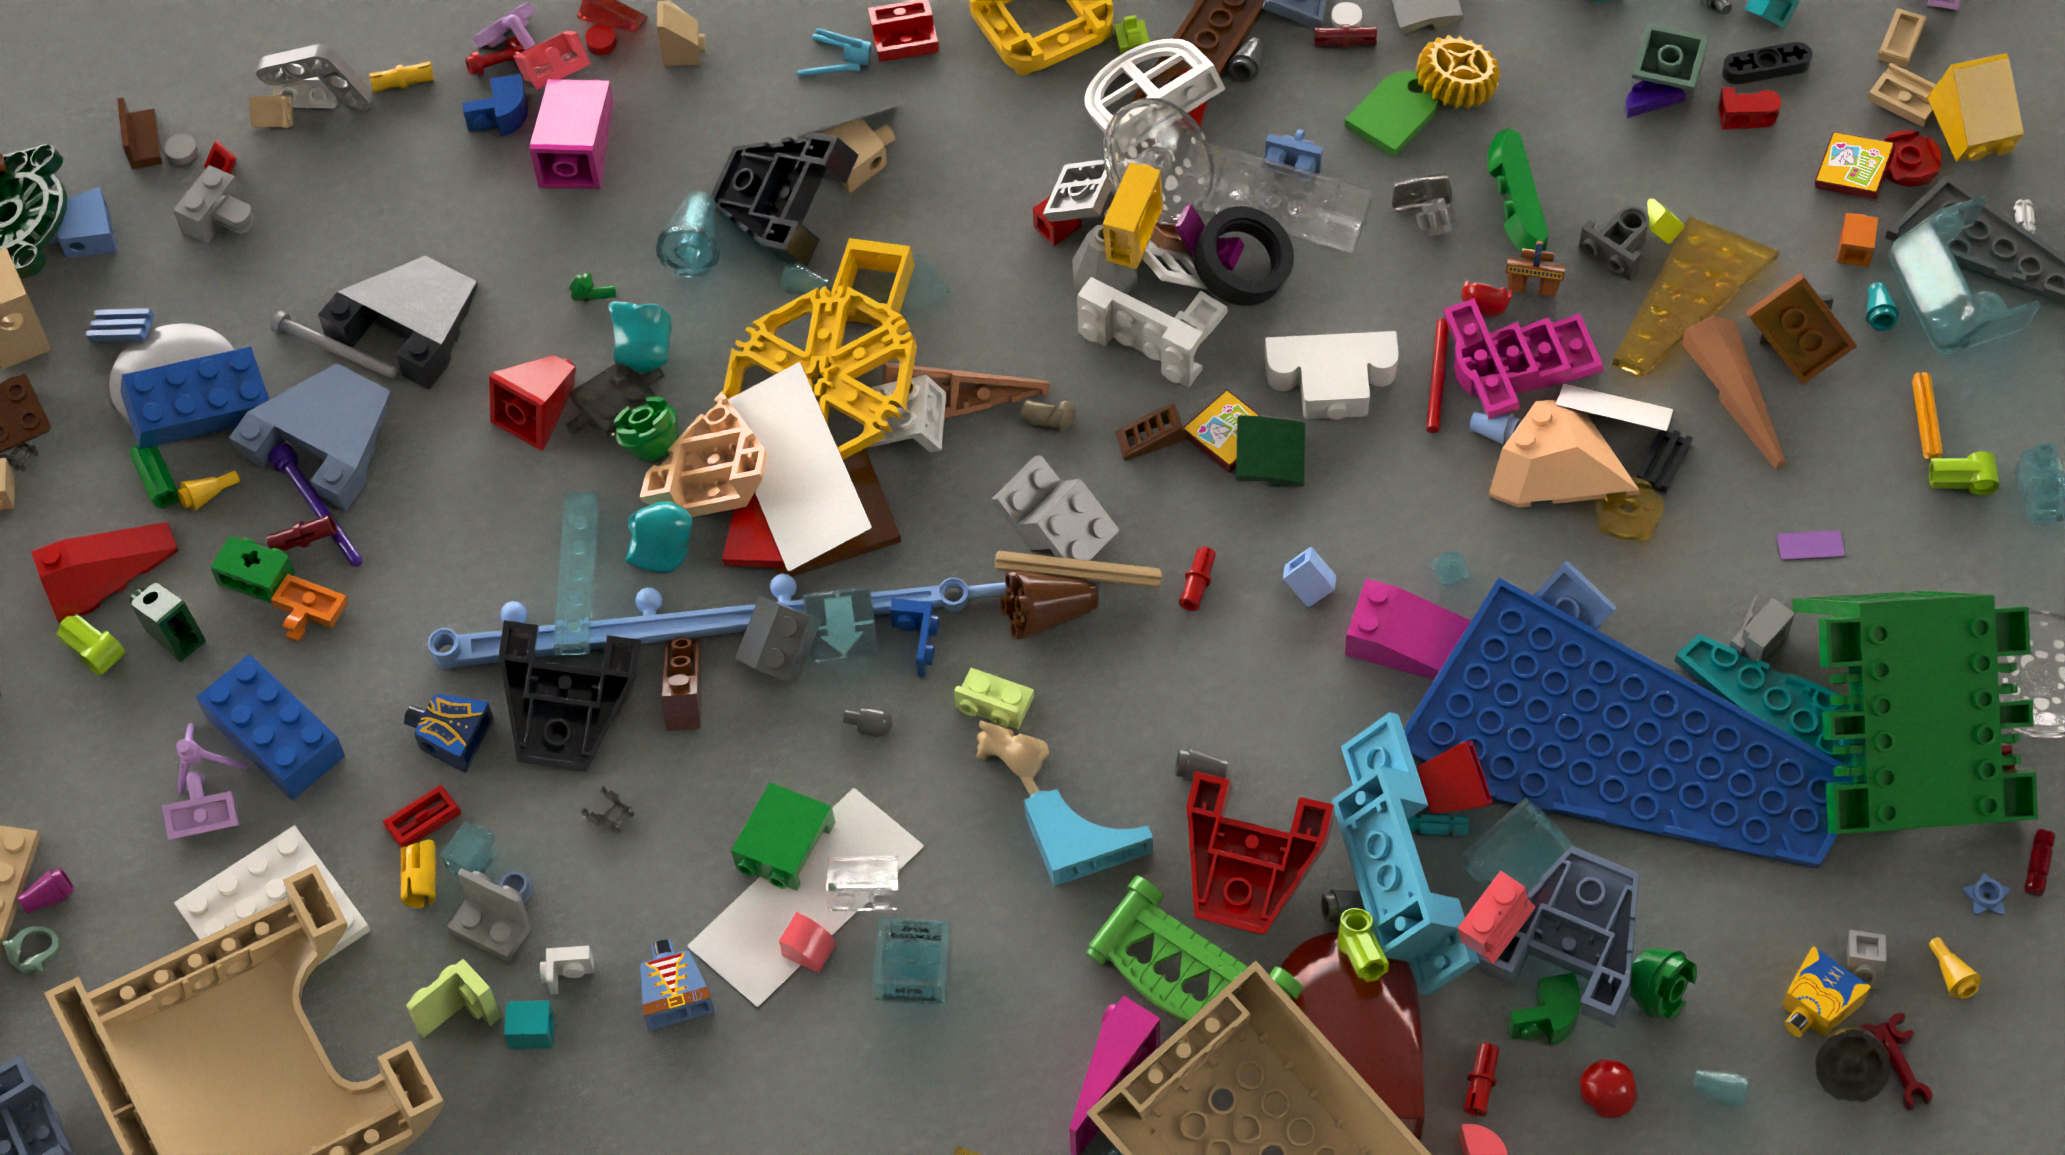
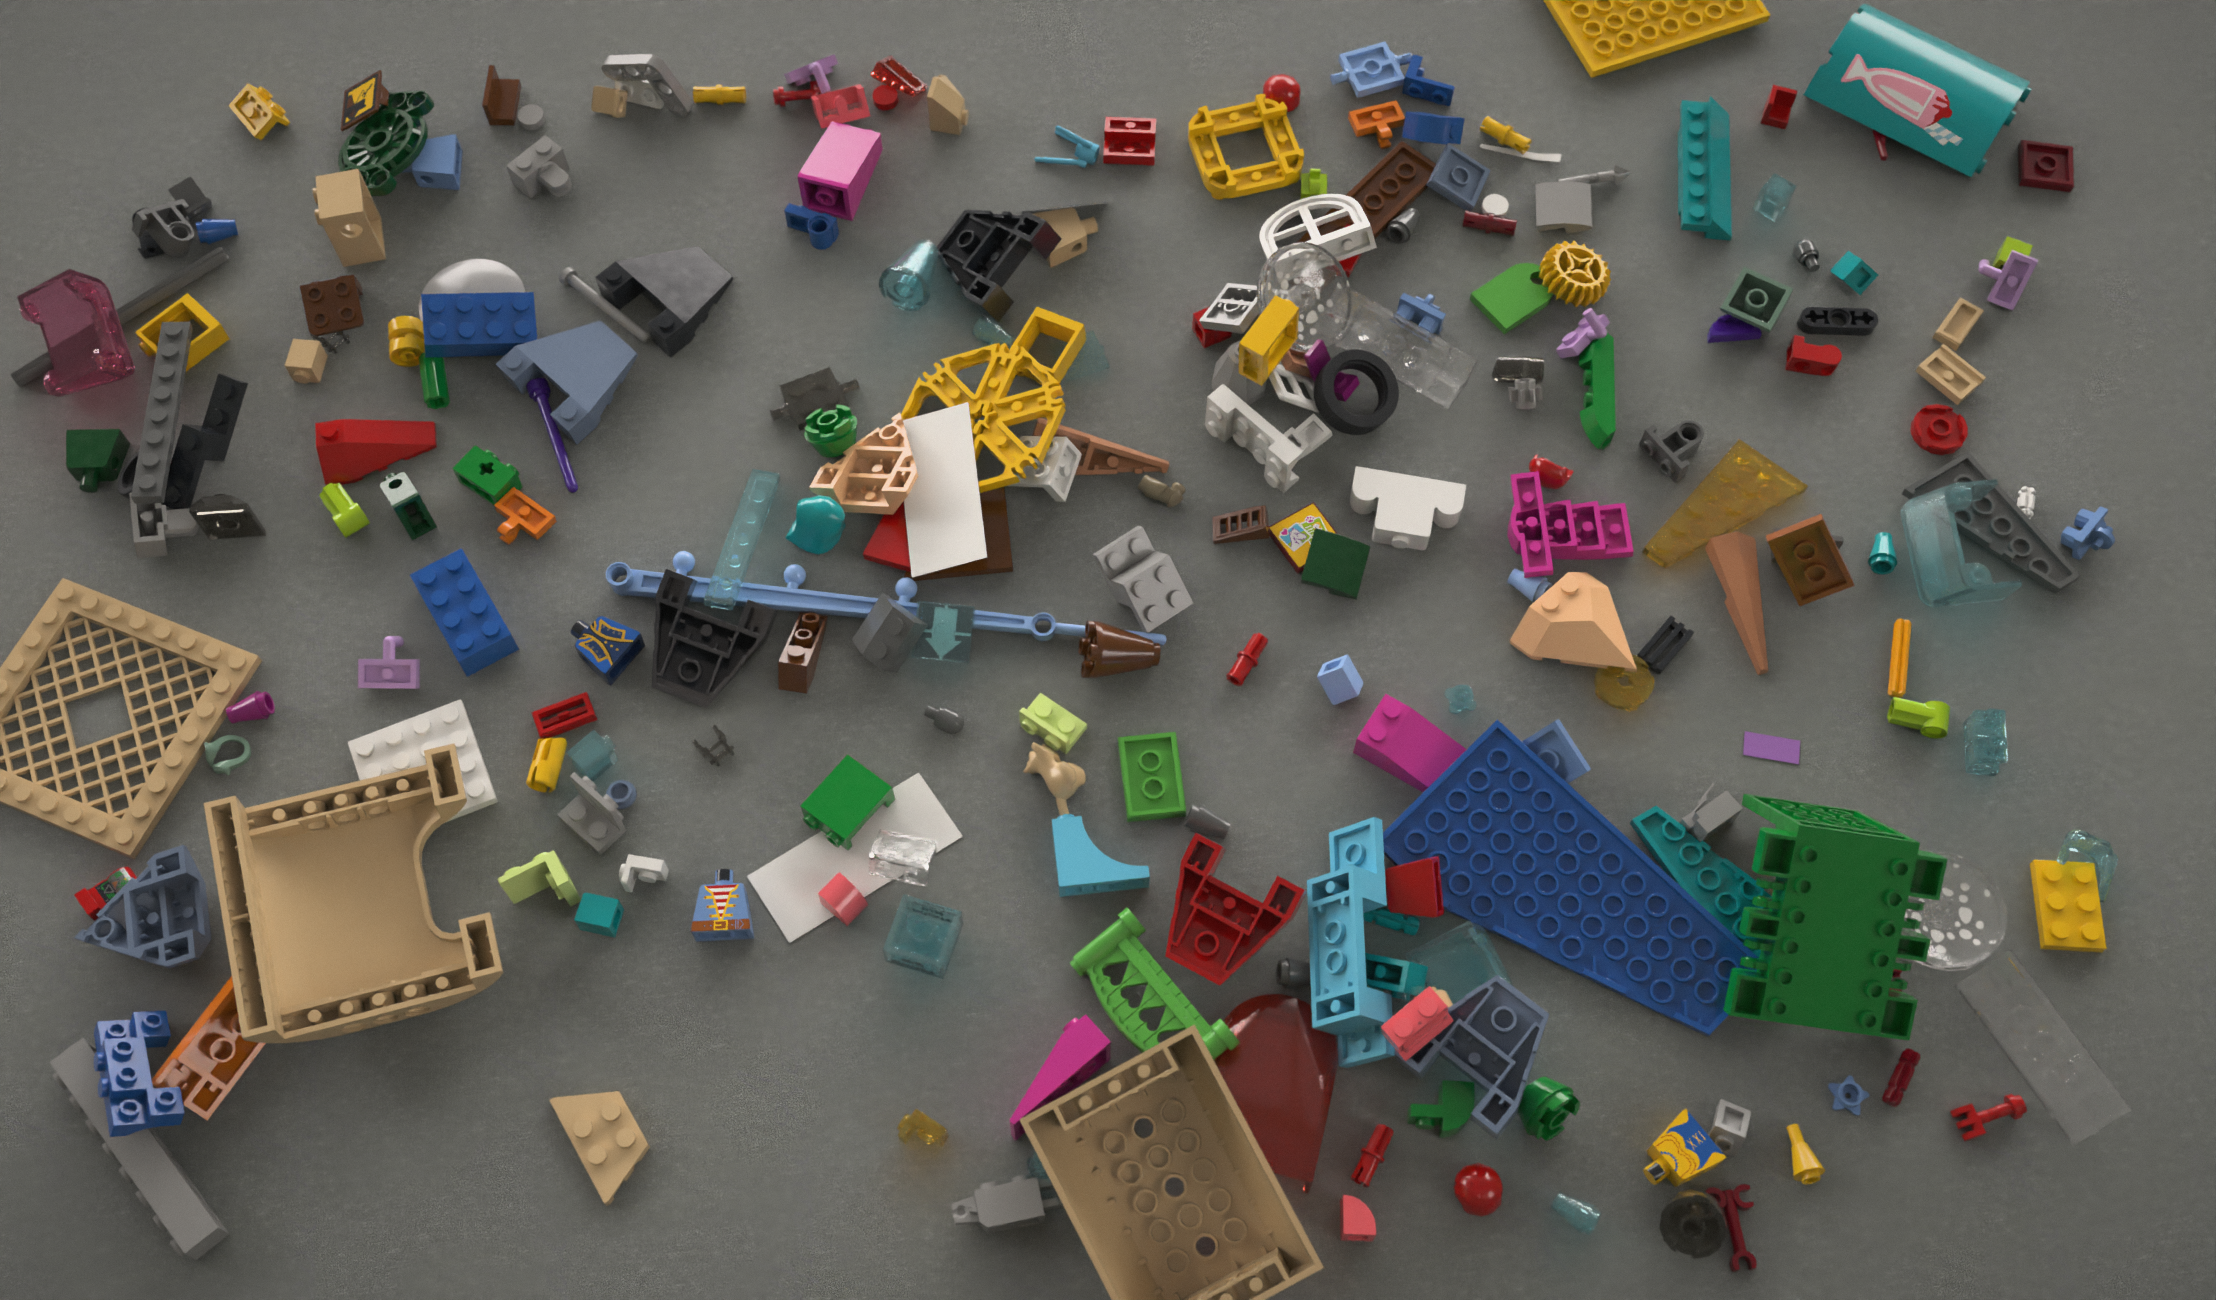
camera: 10 degrees right, 5 degrees up
(108, 436) = (405, 340): none -> yellow wheel
(122, 320) = (445, 248): medium blue tile -> none
(192, 754) = (392, 622): lavender plant -> none
(200, 491) = (465, 402): yellow cone -> none
(220, 158) = (558, 132): red slope -> none
(303, 533) = (534, 456): dark red pin -> none
(505, 110) = (793, 139): blue brick -> none
(531, 398) = (747, 383): red slope -> none
(566, 202) = (820, 226): none -> blue plate
(583, 288) = (814, 301): green plate -> none
(640, 335) = (846, 351): teal piece -> none
(919, 615) = (1003, 638): blue bracket -> none
(1079, 569) = (1149, 630): tan axle -> none
(1123, 731) = (1151, 776): none -> bright green tile
(1361, 944) = (1299, 1015): lime piece -> none
(1437, 376) = (1492, 530): red bar -> none
(1458, 877) = (1396, 975): none -> teal brick
(1490, 129) = (1589, 329): none -> lavender plate
(1520, 269) = (1607, 462): dark orange hips -> none
(1614, 407) = (1634, 590): white sticker -> none
(1663, 221) = (1715, 439): neon yellow slope -> none
(1855, 165) = (1891, 426): tile -> none
(1857, 239) = (1877, 491): orange brick -> none
(1978, 108) = (2009, 400): yellow slope -> none

